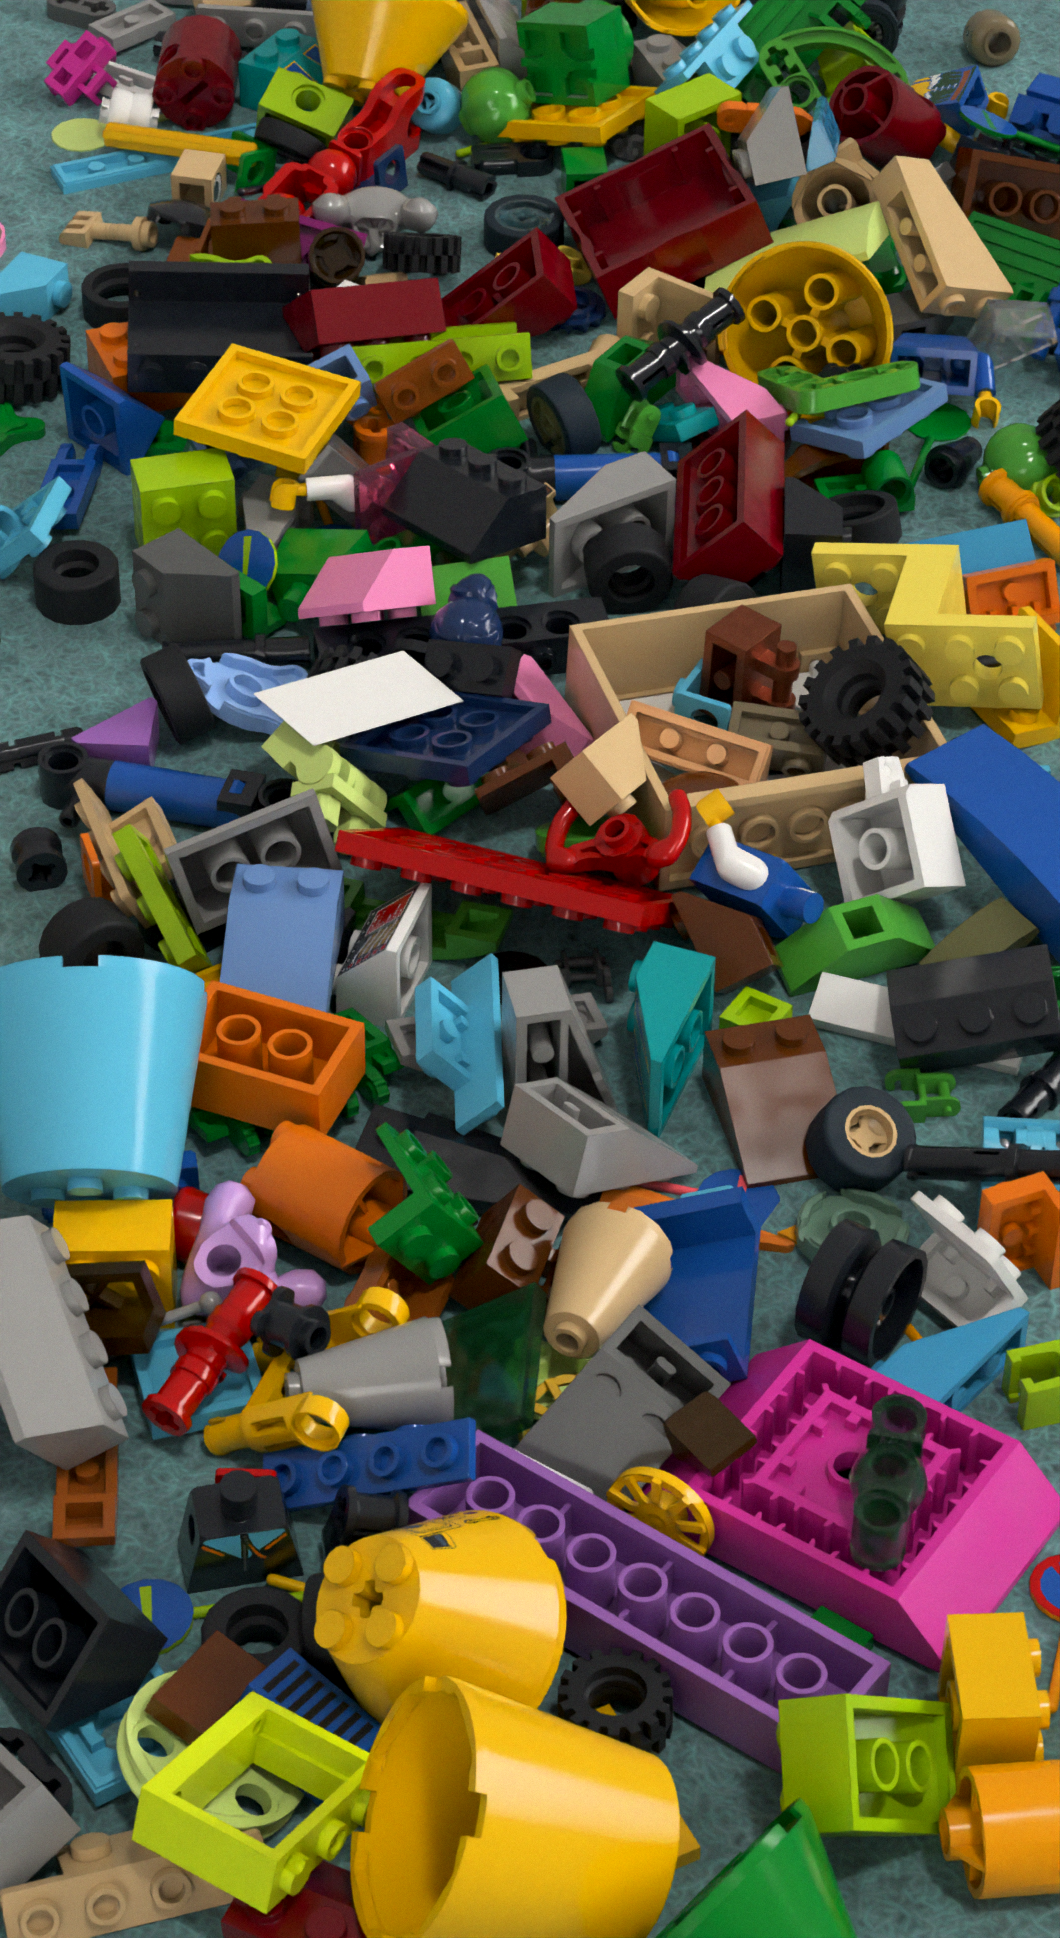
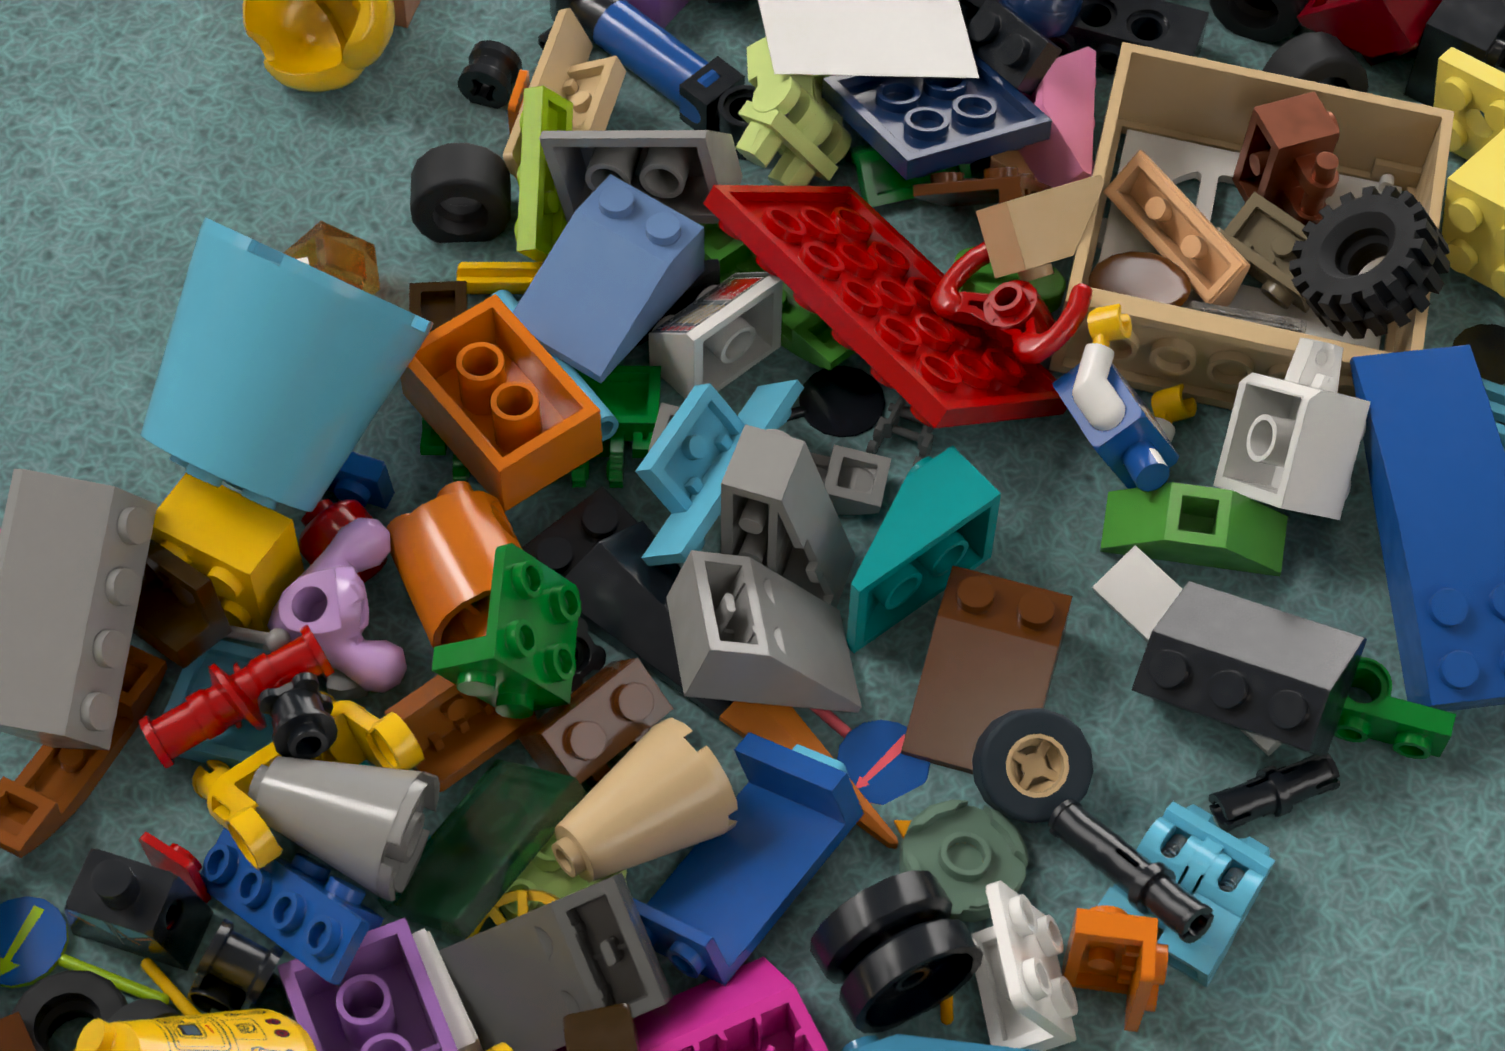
camera: 30 degrees right, 15 degrees up
(688, 699) = (1213, 171): medium azure bracket -> none
(734, 937) = (1052, 465): reddish brown slope -> none
(754, 1007) = (1039, 560): lime plate -> none
(924, 1084) = (1157, 721): bright green piece -> none
(987, 931) = (1327, 587): olive slope -> none

